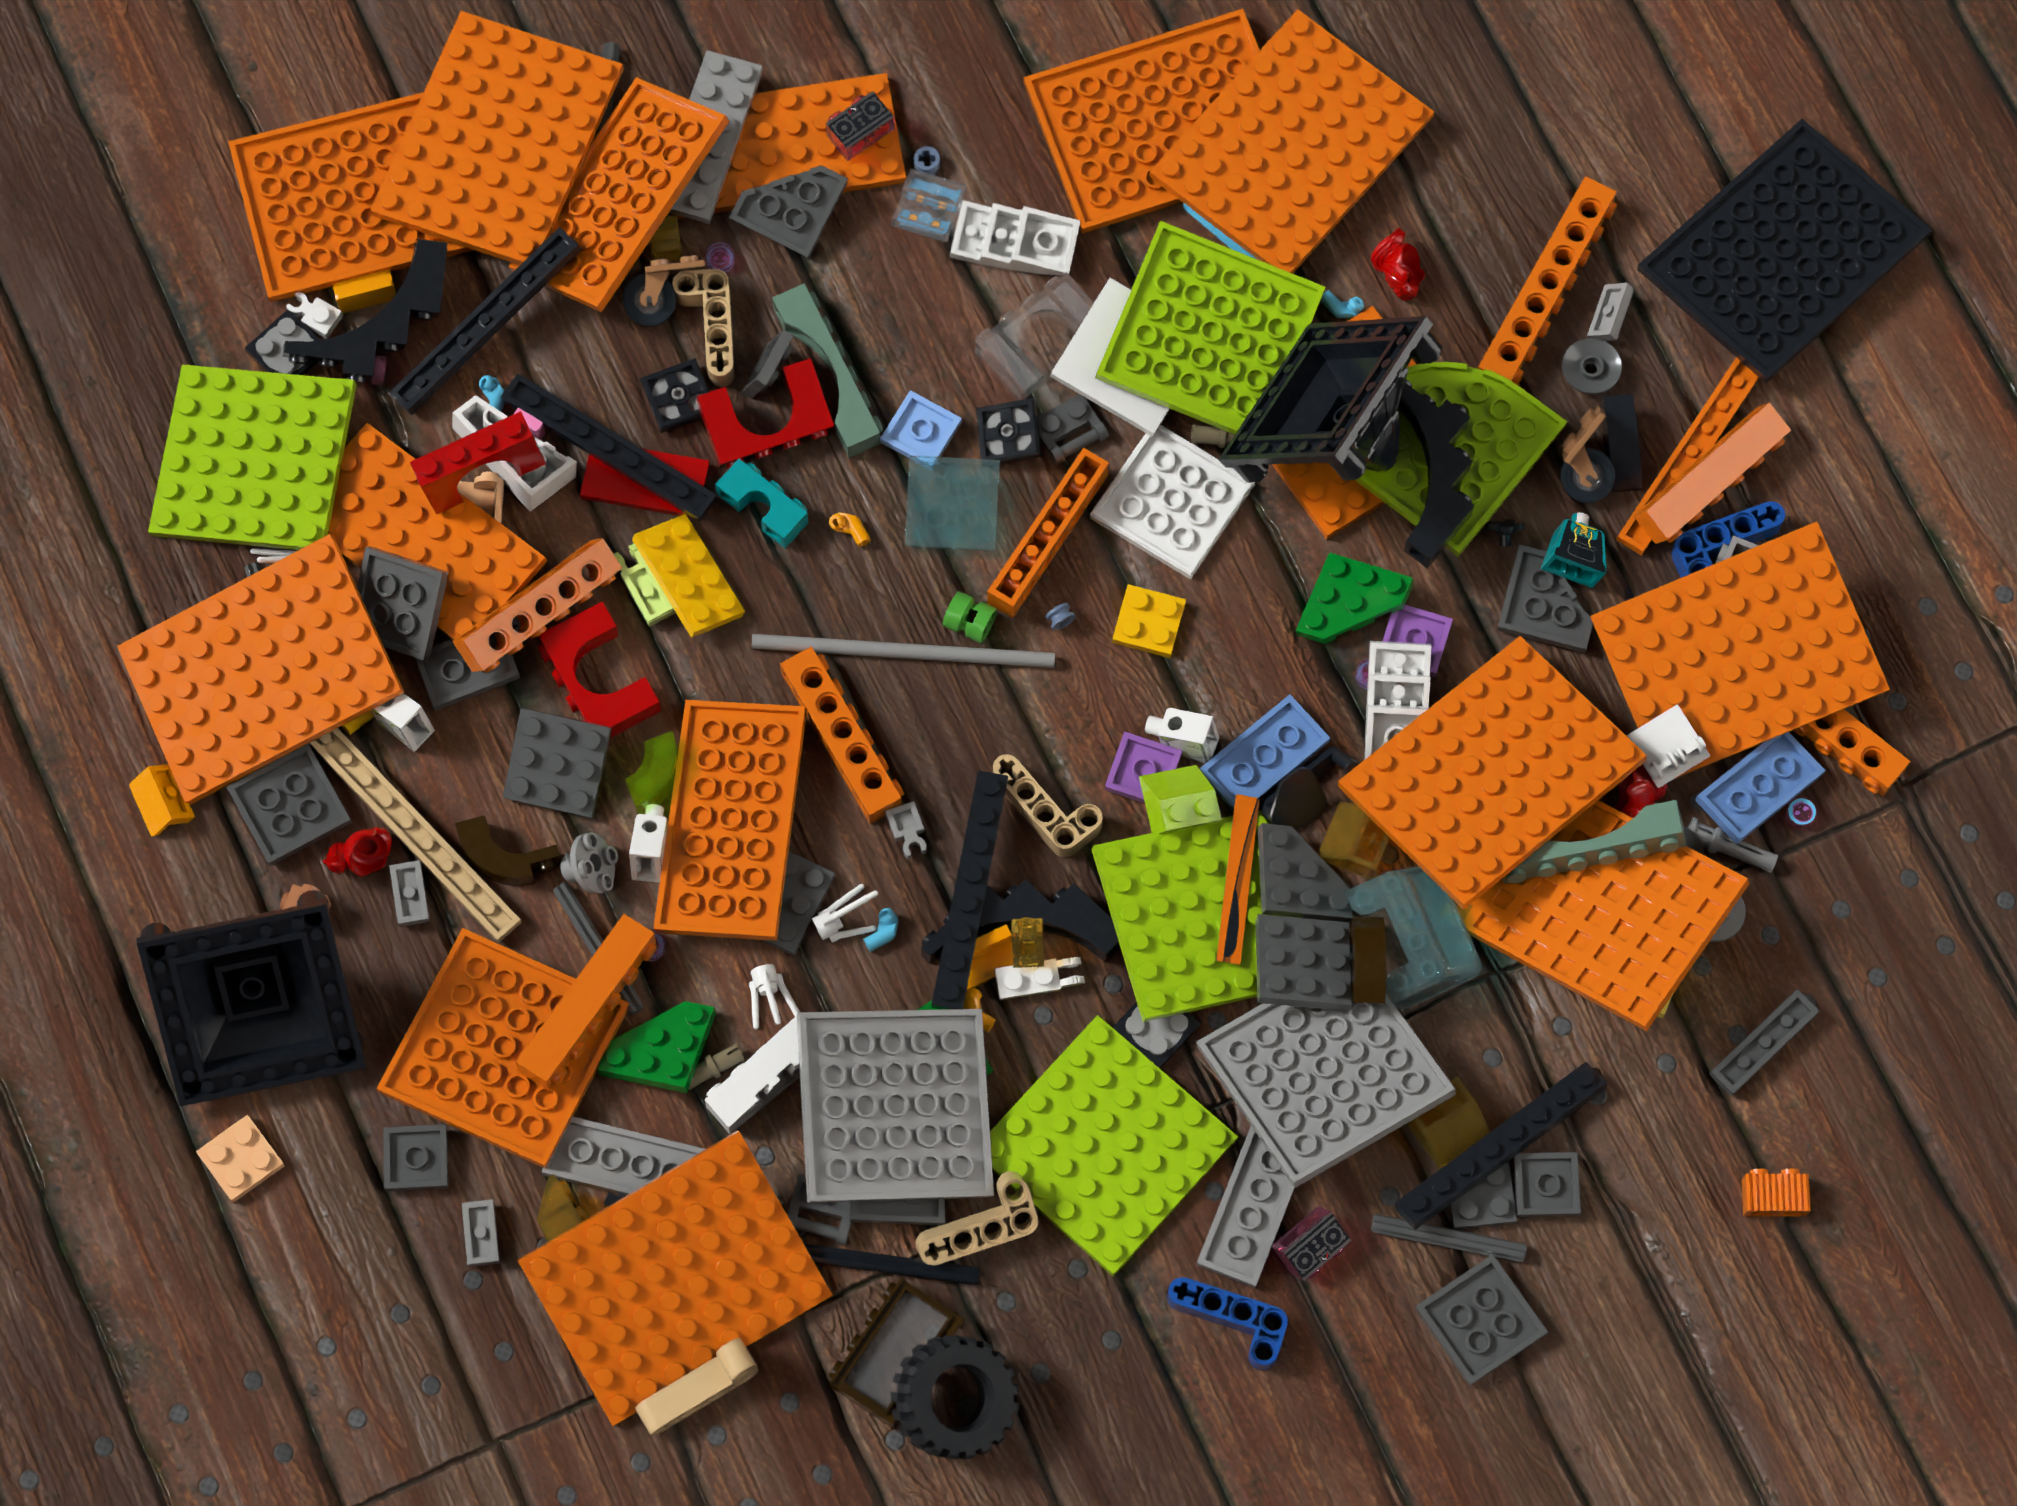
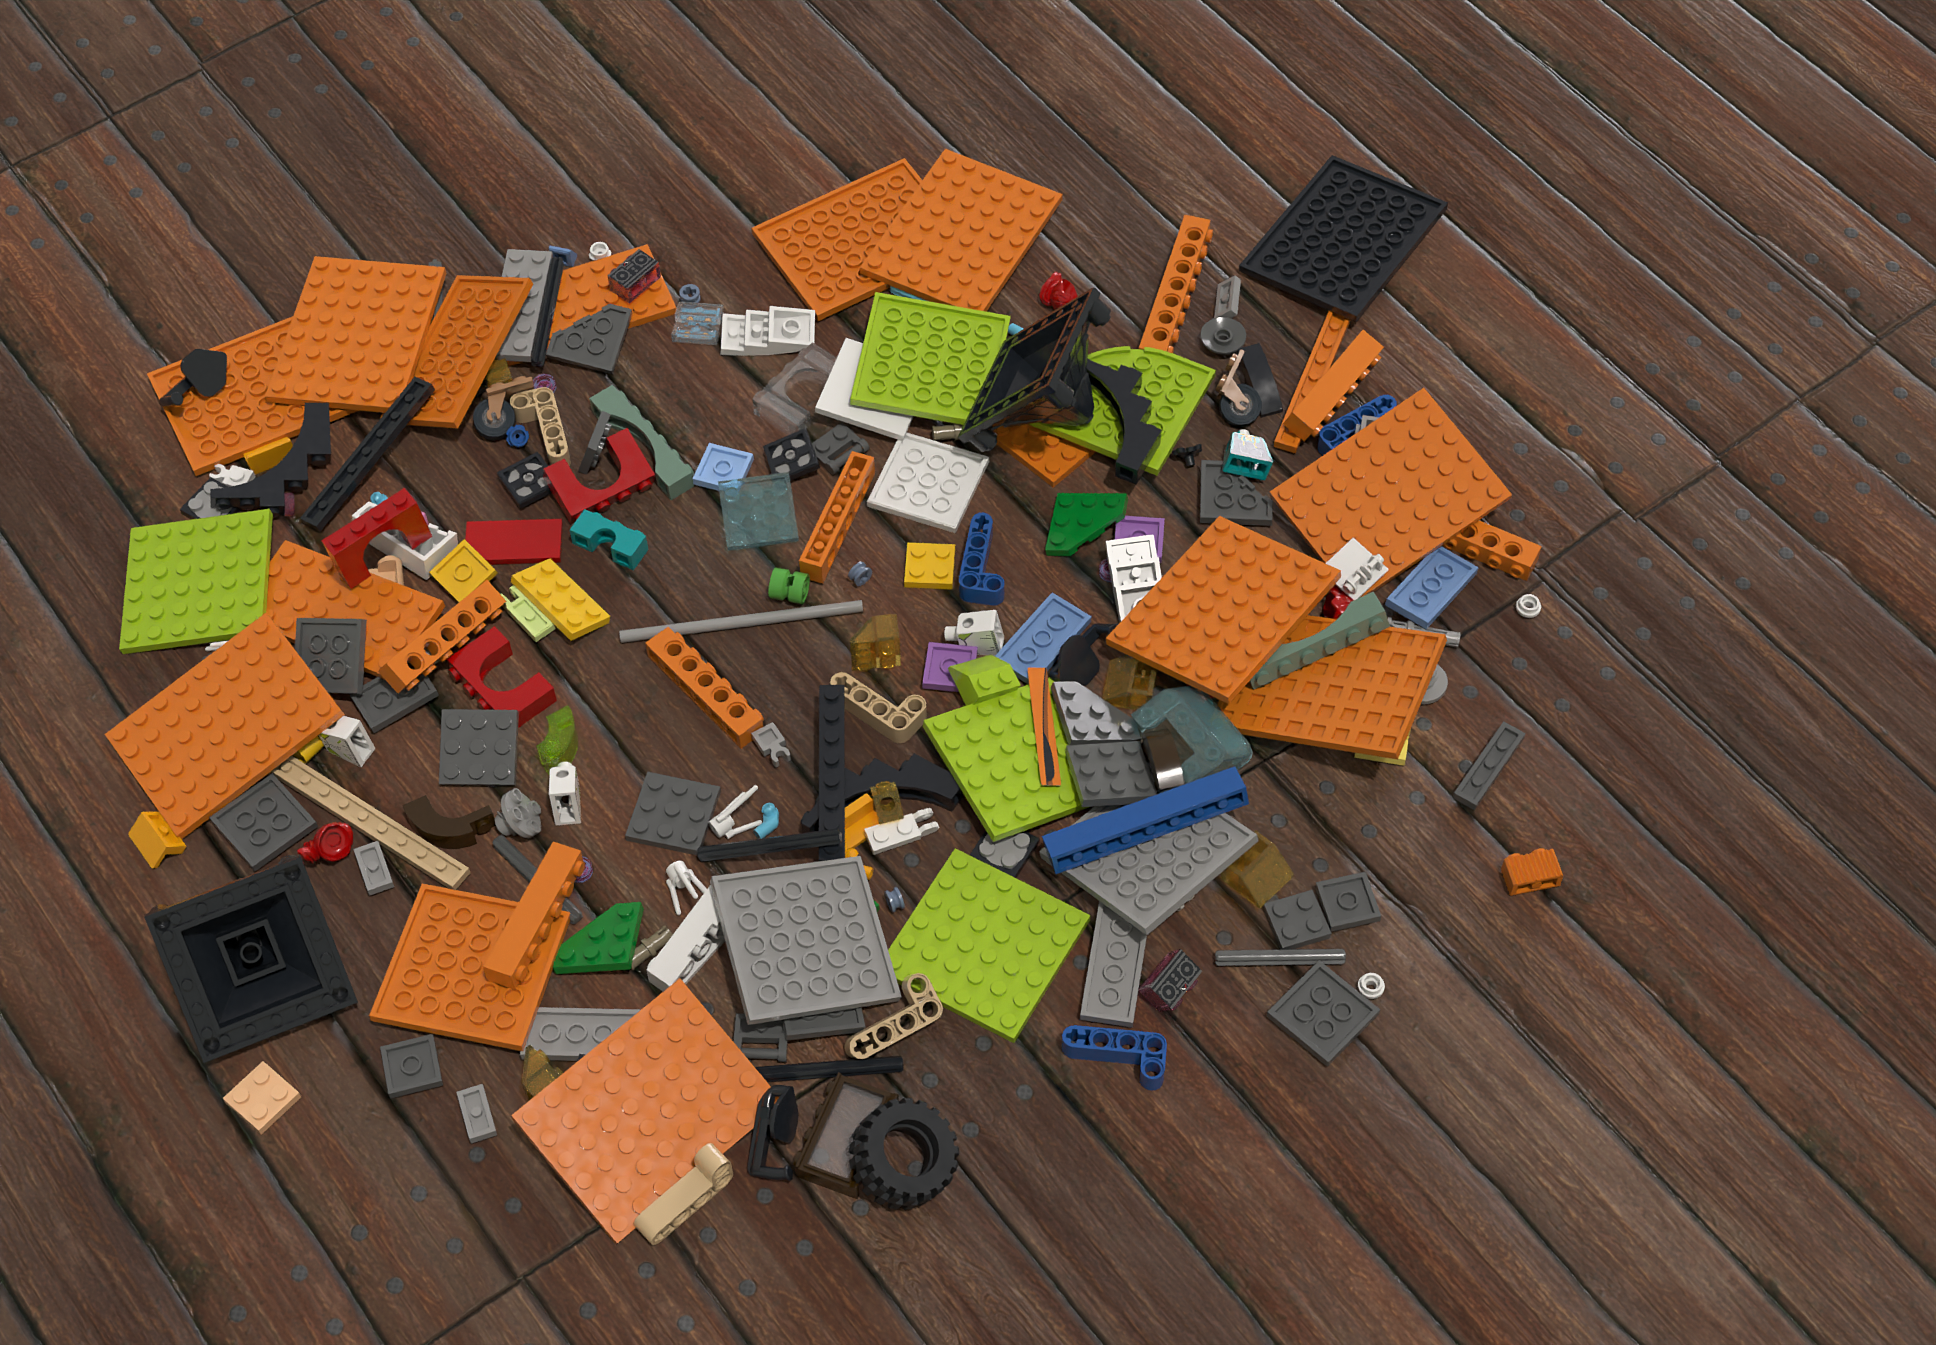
camera: 10 degrees left, 15 degrees down
(298, 160) = (203, 371): none -> black piece
(576, 514) = (462, 571): none -> yellow plate
(609, 448) = (490, 524): black plate -> none
(677, 335) = (523, 436): none -> blue plate
(730, 820) = (627, 763): orange plate -> none
(741, 155) = (547, 312): none -> black axle
(776, 68) = (568, 256): none -> medium blue slope
(818, 1326) = (777, 1121): none -> black piece
(820, 66) = (599, 250): none -> white plate
(850, 525) = (682, 543): light orange arm -> none
(877, 970) = (769, 845): none -> black axle
(1011, 1067) = (894, 899): none -> sand blue bush
(1059, 725) = (876, 644): none -> clear yellow slope
(1211, 625) = (975, 563): none -> blue beam
(1328, 1037) = (1145, 820): none -> blue brick
(1500, 1145) = (1302, 879): black plate -> none
(1551, 1289) = (1371, 979): none -> white plate
(1801, 813) = (1468, 602): tile -> none
(1876, 827) = (1530, 601): none -> white plate

